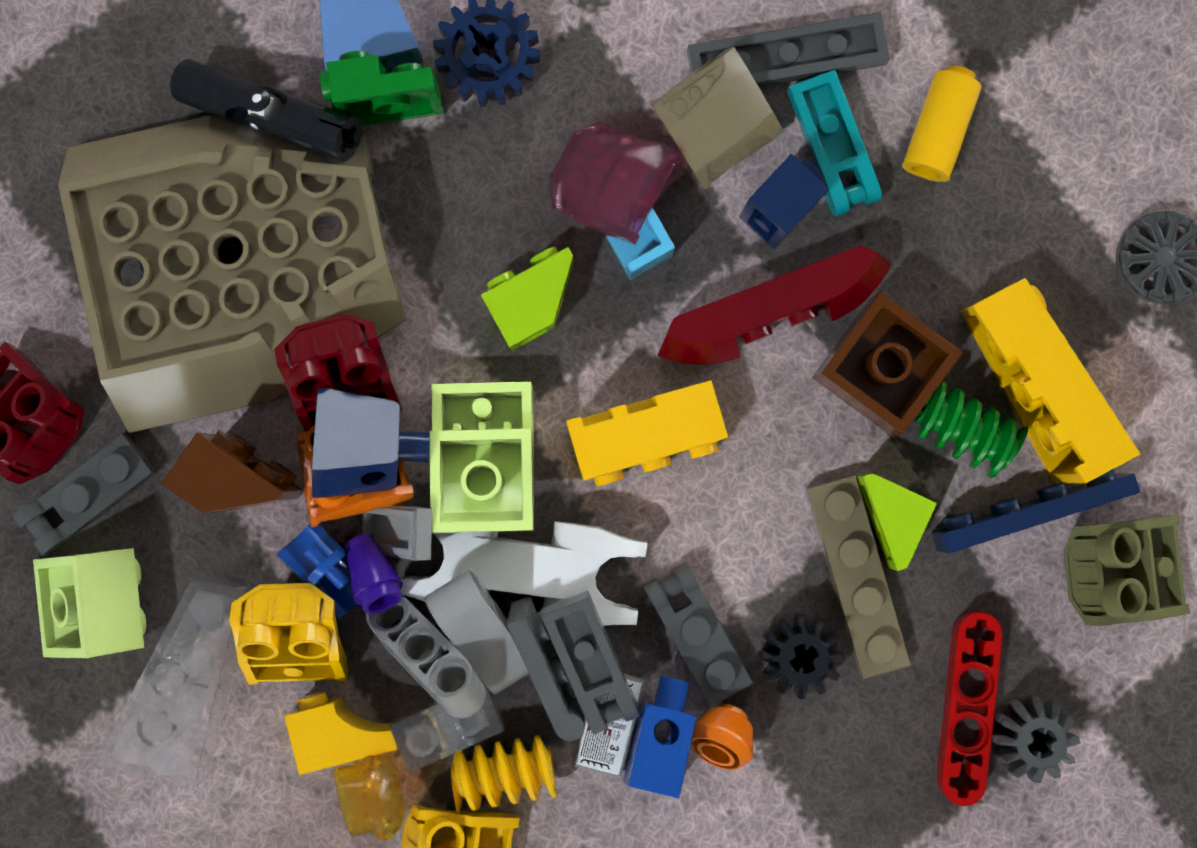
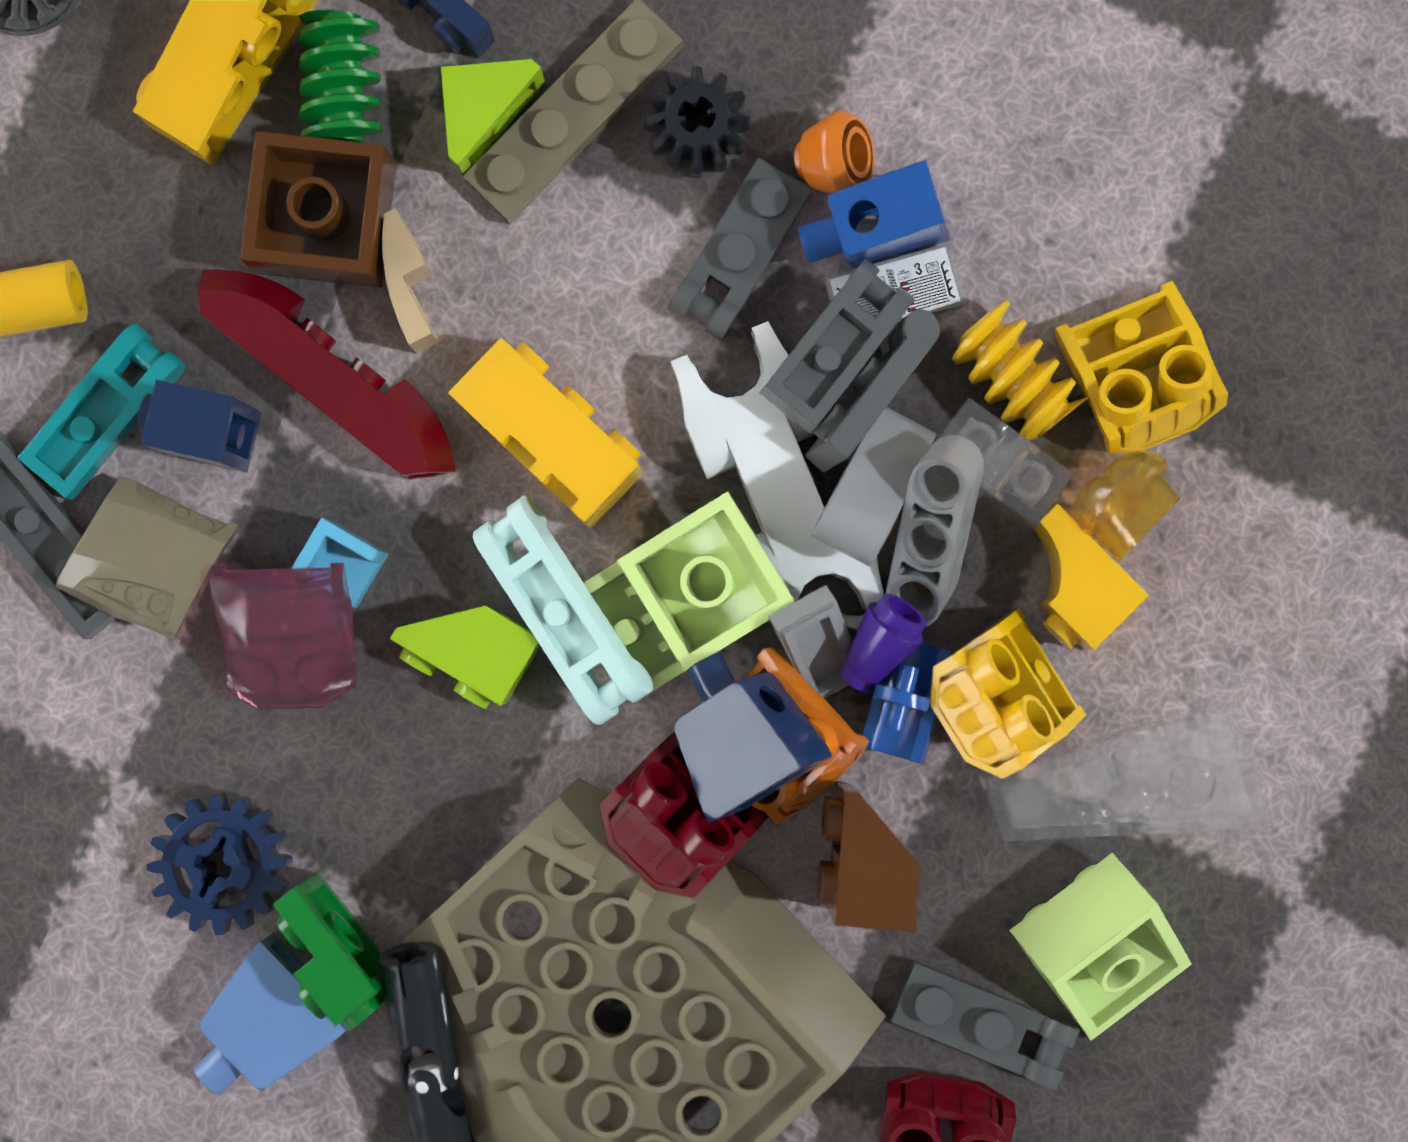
camera: 120 degrees left, 0 degrees up
(519, 371) = (561, 611): none -> light aqua plate
(815, 399) = (403, 269): none -> tan slope

